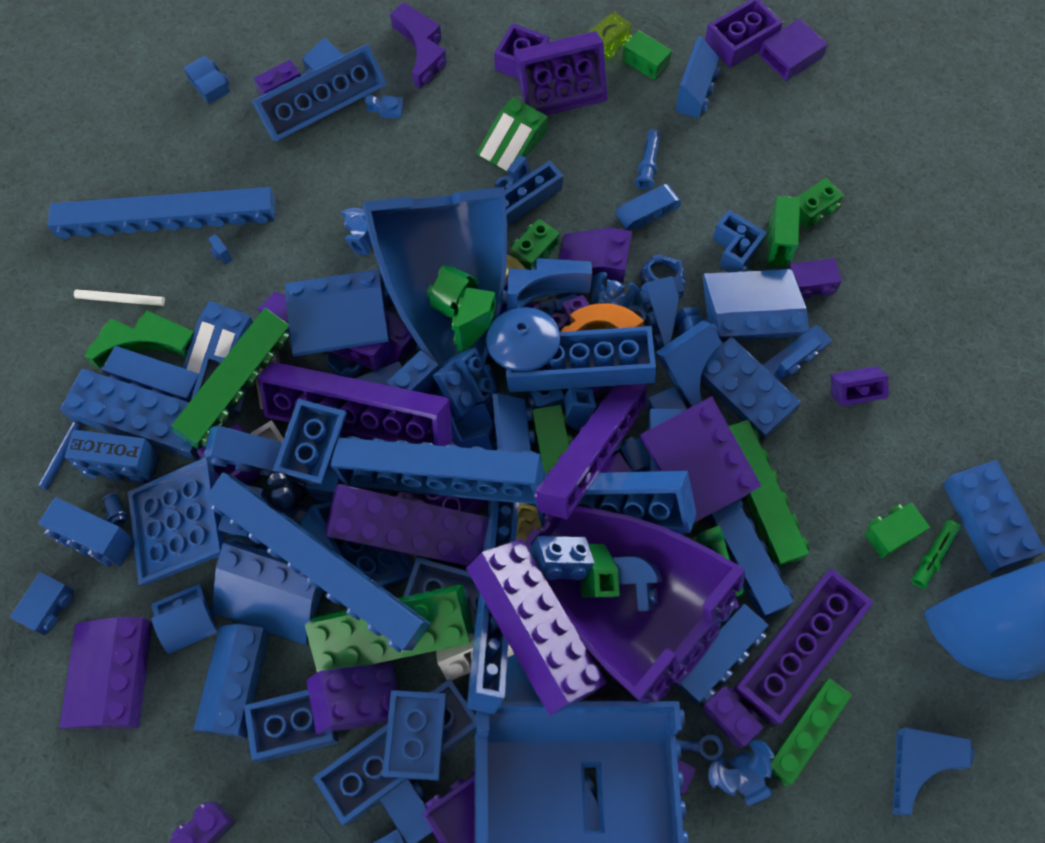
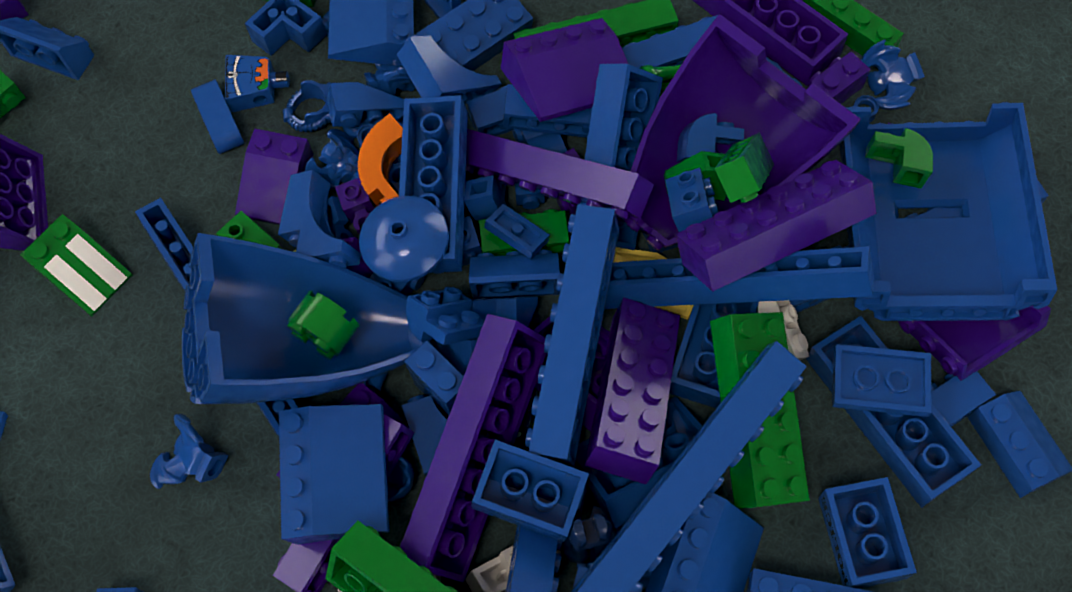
camera: 85 degrees left, 0 degrees up
(351, 696) = (841, 455): dark purple brick -> none
(474, 317) = (365, 295): green slope -> none
(516, 172) = (135, 262): blue plate -> none
(546, 431) = (516, 231): none -> blue plate
(592, 599) = (745, 169): none -> green brick
(636, 772) = (908, 153): none -> green brick
(647, 167) = (157, 112): blue pin -> none
(681, 226) = (251, 81): none -> blue torso

